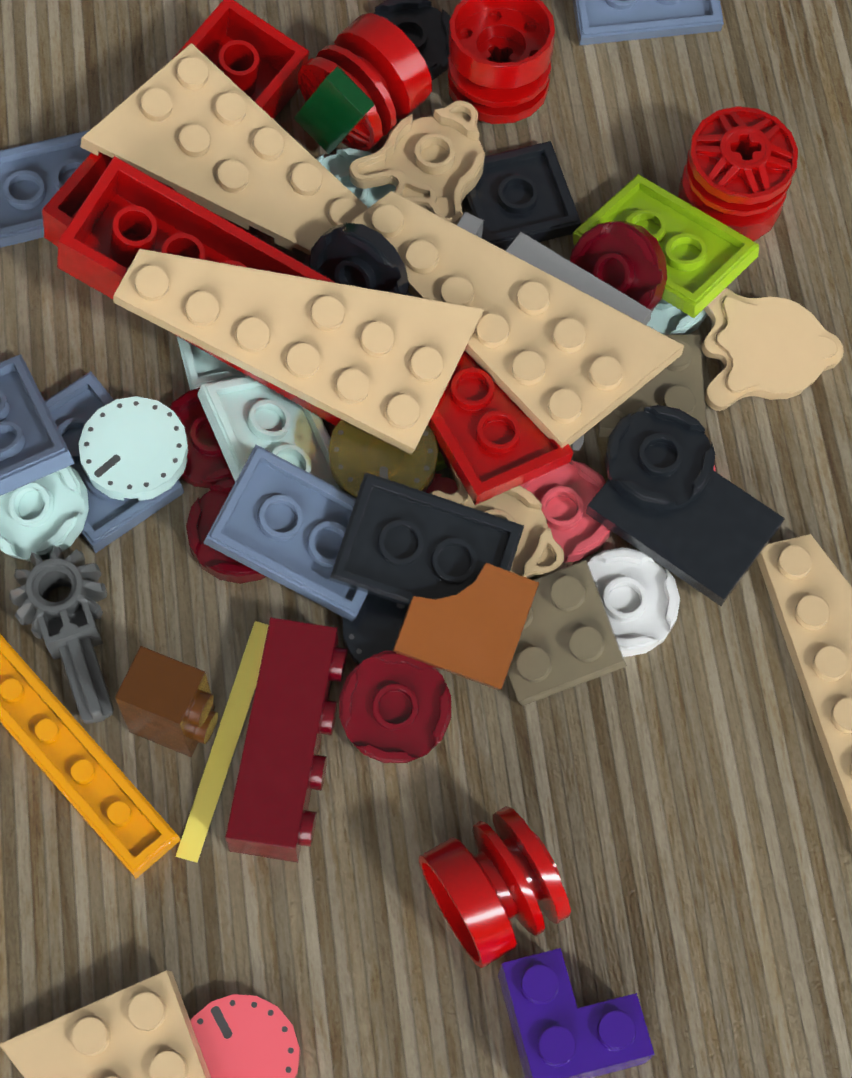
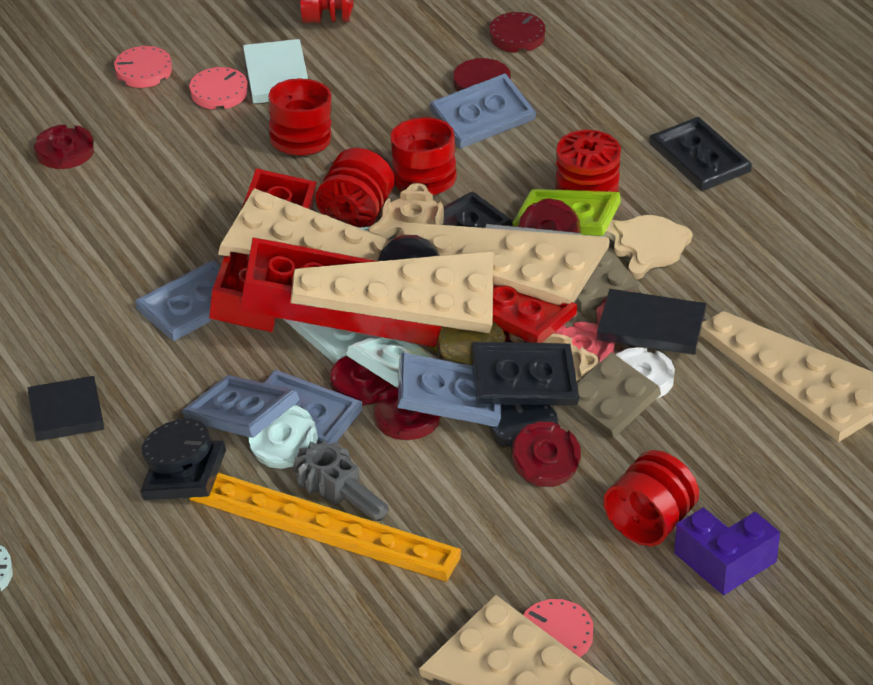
camera: 20 degrees left, 25 degrees down
(133, 448) = (326, 389): light aqua tile -> none
(167, 702) = (422, 483): reddish brown brick -> none
(223, 747) = (458, 507): light yellow sticker -> none
(284, 741) = (495, 487): dark red brick -> none
(333, 110) = (350, 198): dark green tile -> none
(470, 631) = (569, 396): dark orange tile -> none
(659, 458) = (623, 297): black tile -> none

